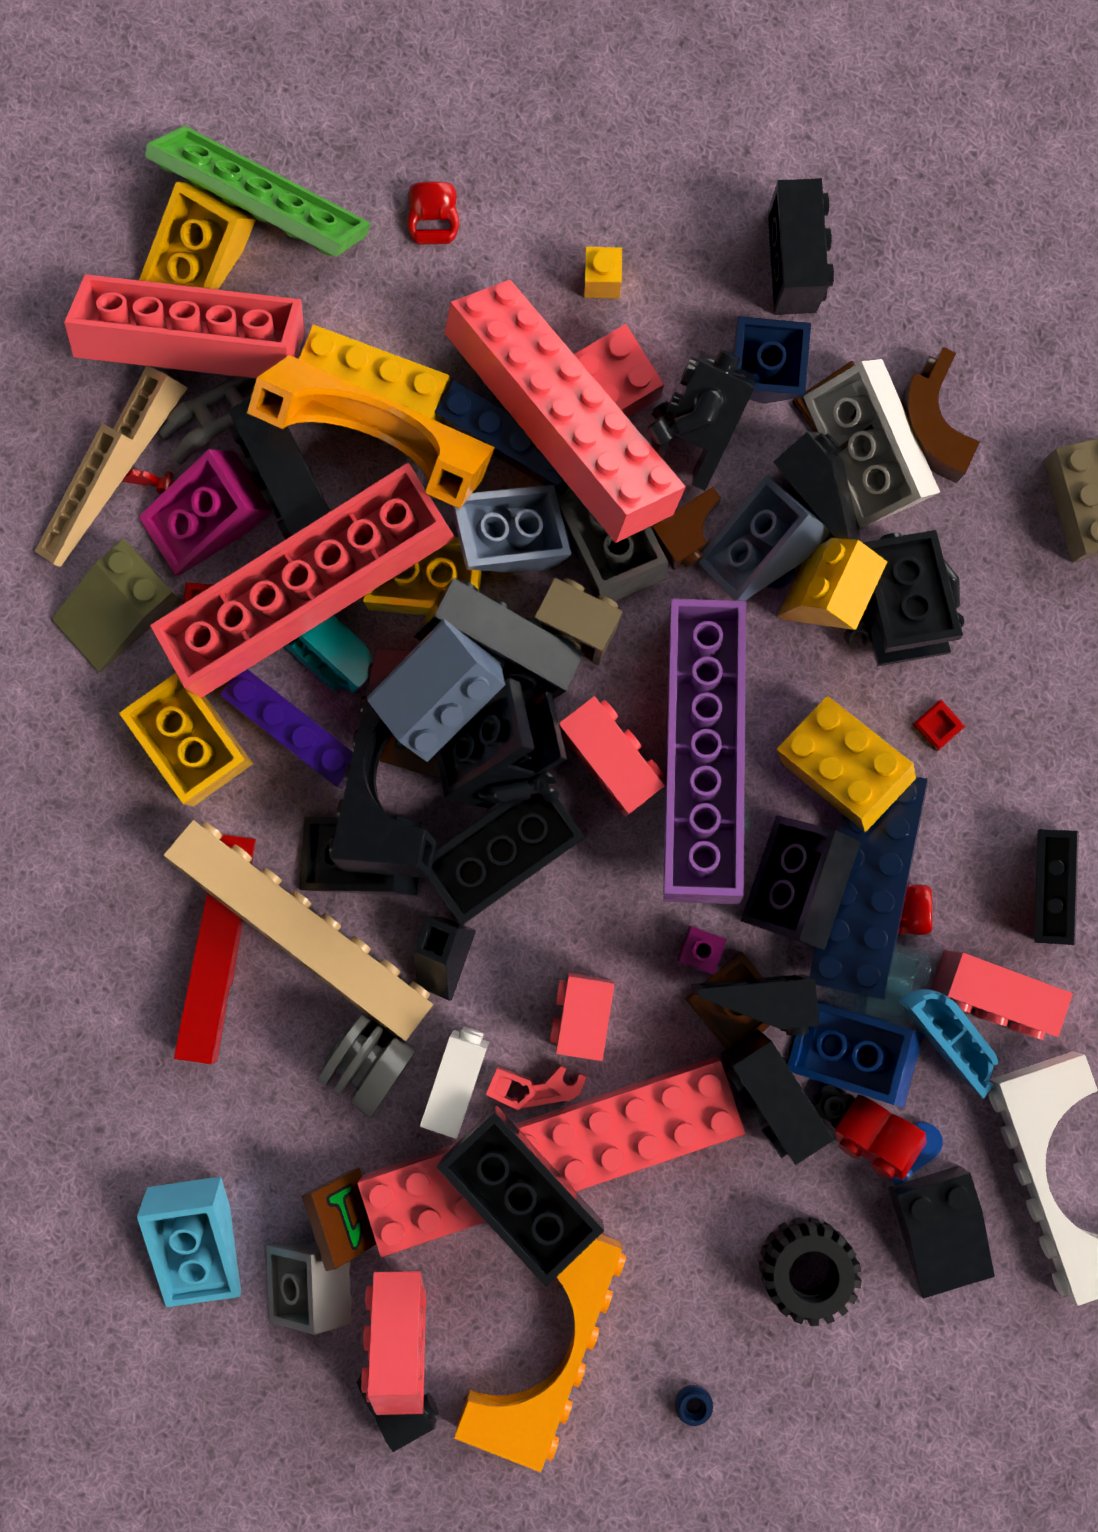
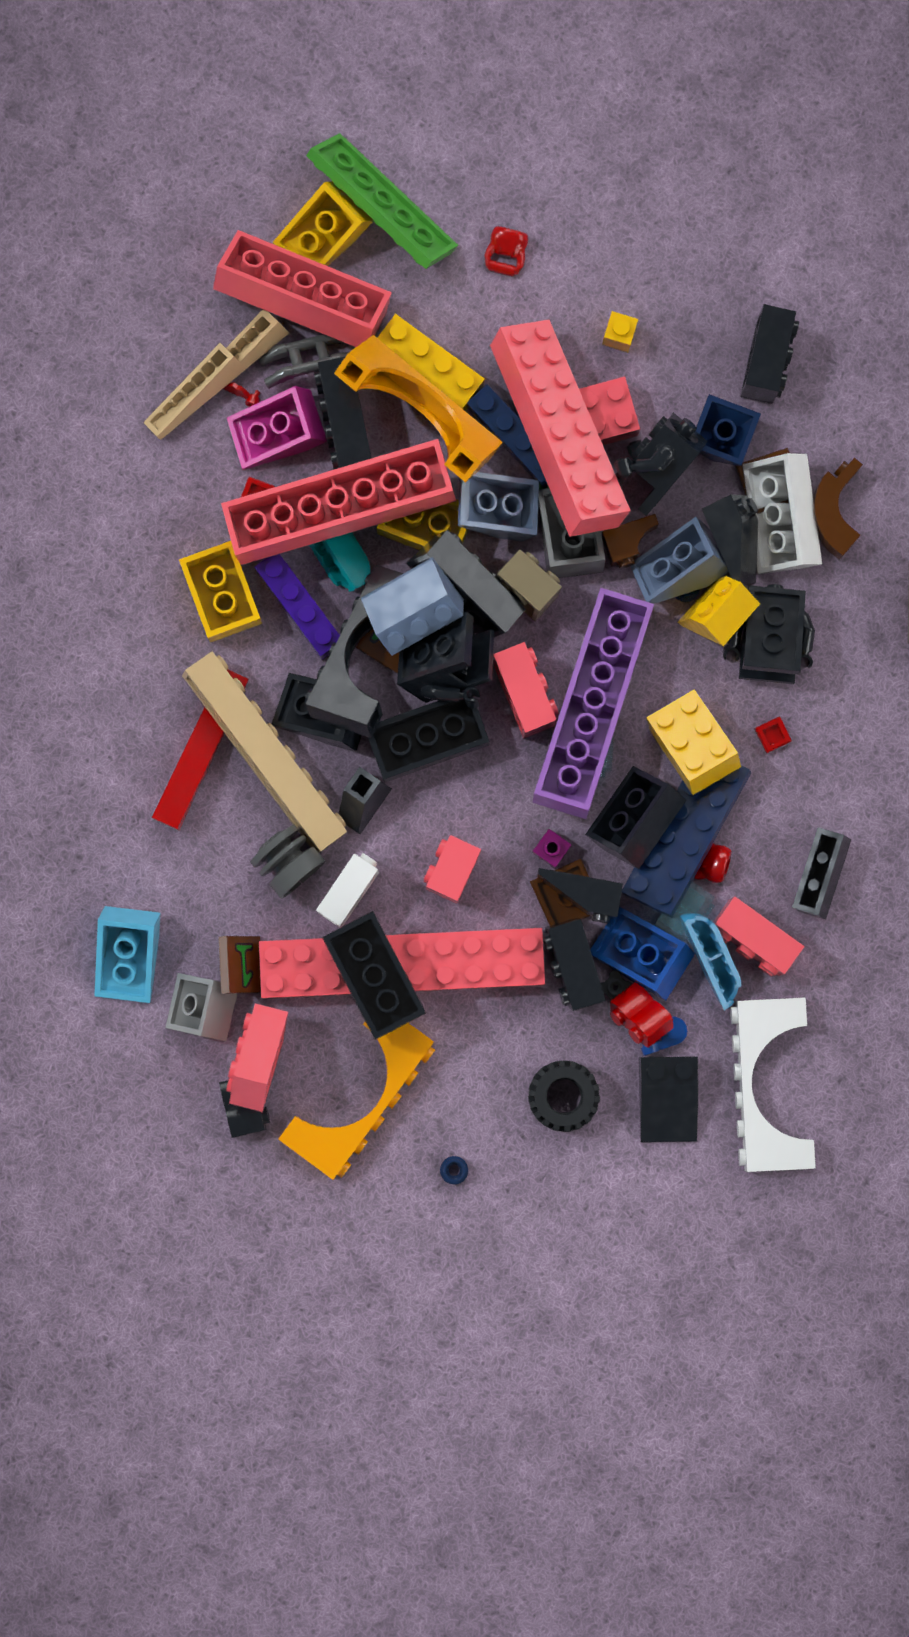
camera: 10 degrees right, 0 degrees up
(114, 605) = (192, 479): olive slope -> none
(541, 1093) = (412, 919): coral piece -> none

